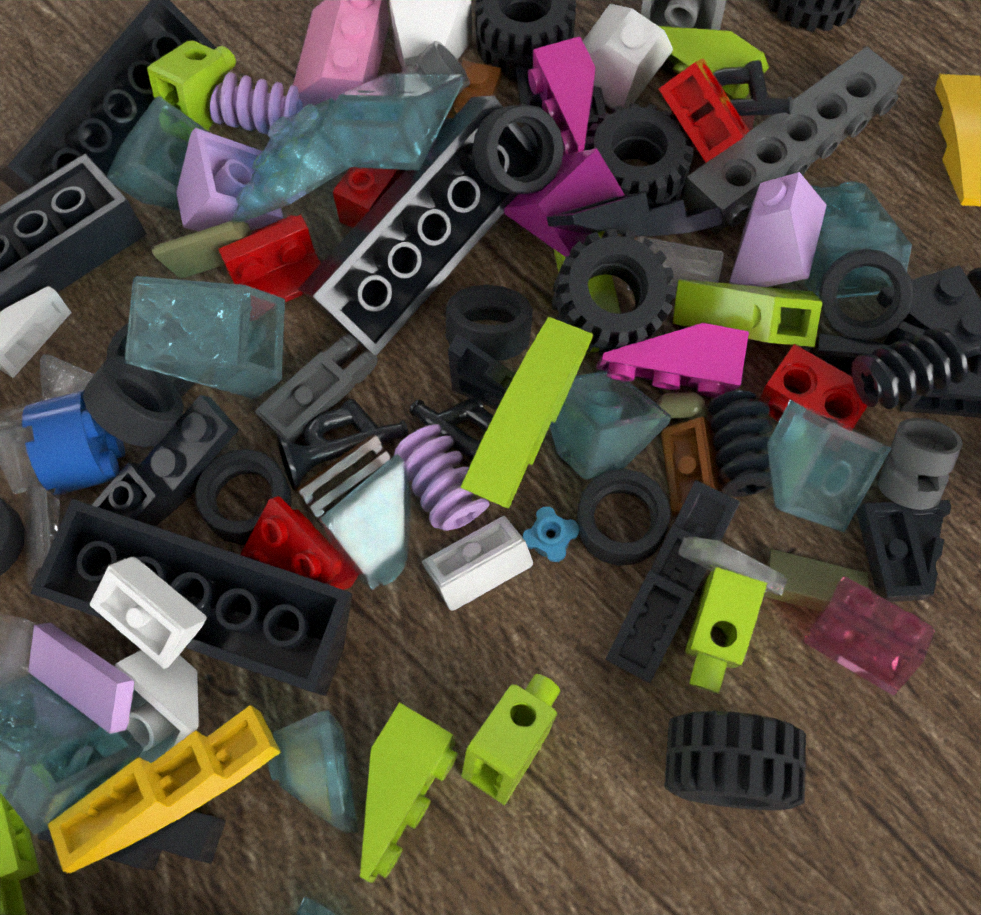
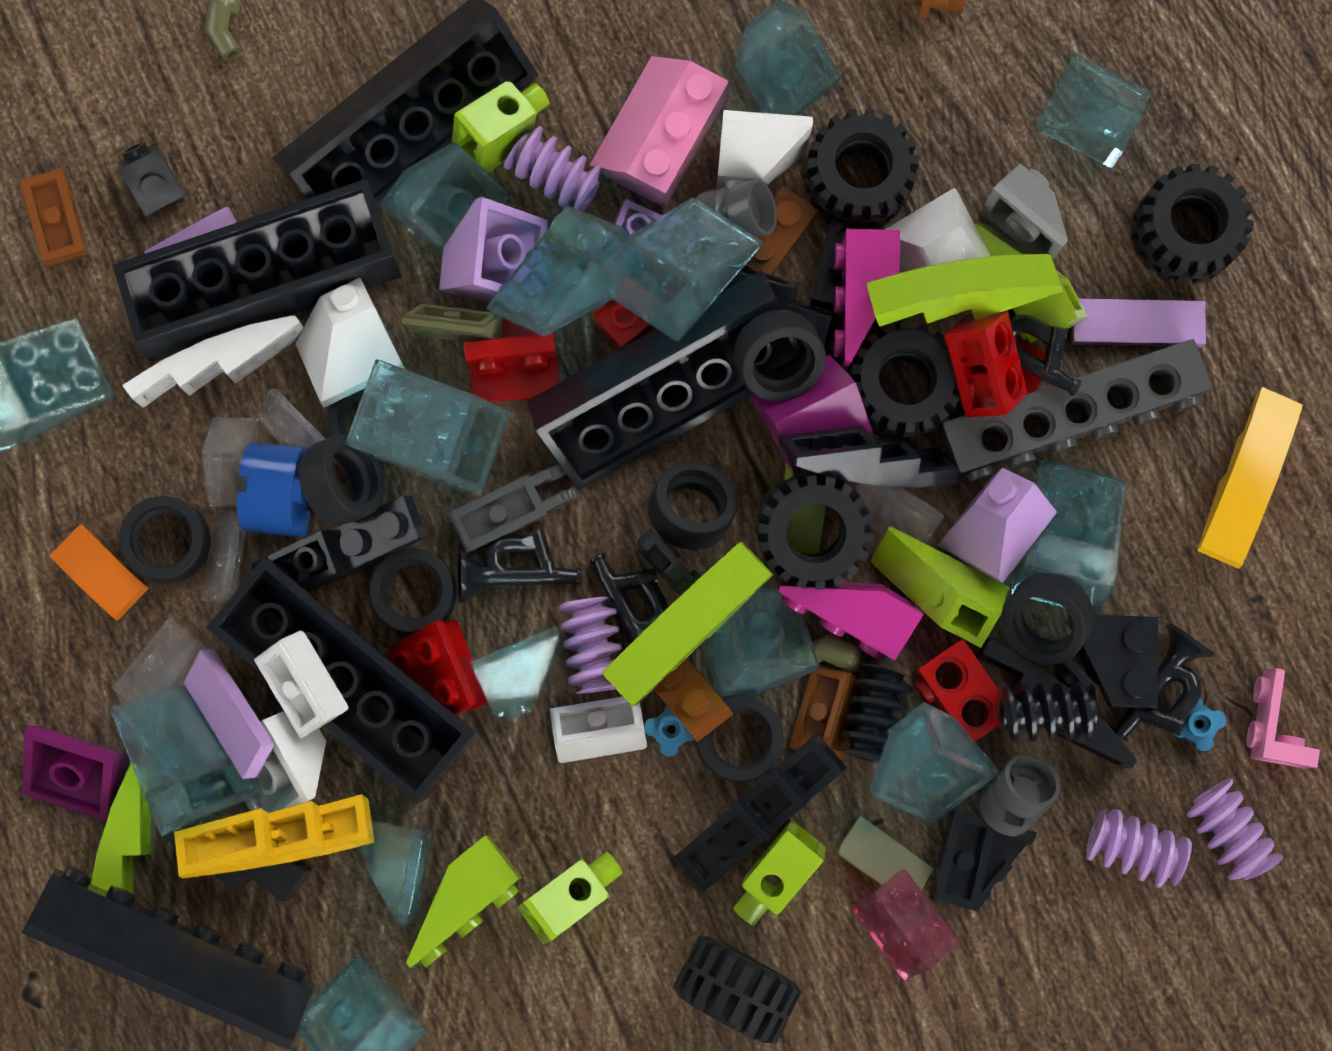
camera: 15 degrees right, 15 degrees up
(100, 292) = (343, 342): none -> white slope
(336, 467) = (511, 619): tile -> none
(559, 492) = (692, 700): none -> dark orange plate
(666, 45) = (953, 287): none -> lime slope
(717, 554) = (808, 828): clear tile -> none
(809, 63) = (1140, 323): none -> lavender tile

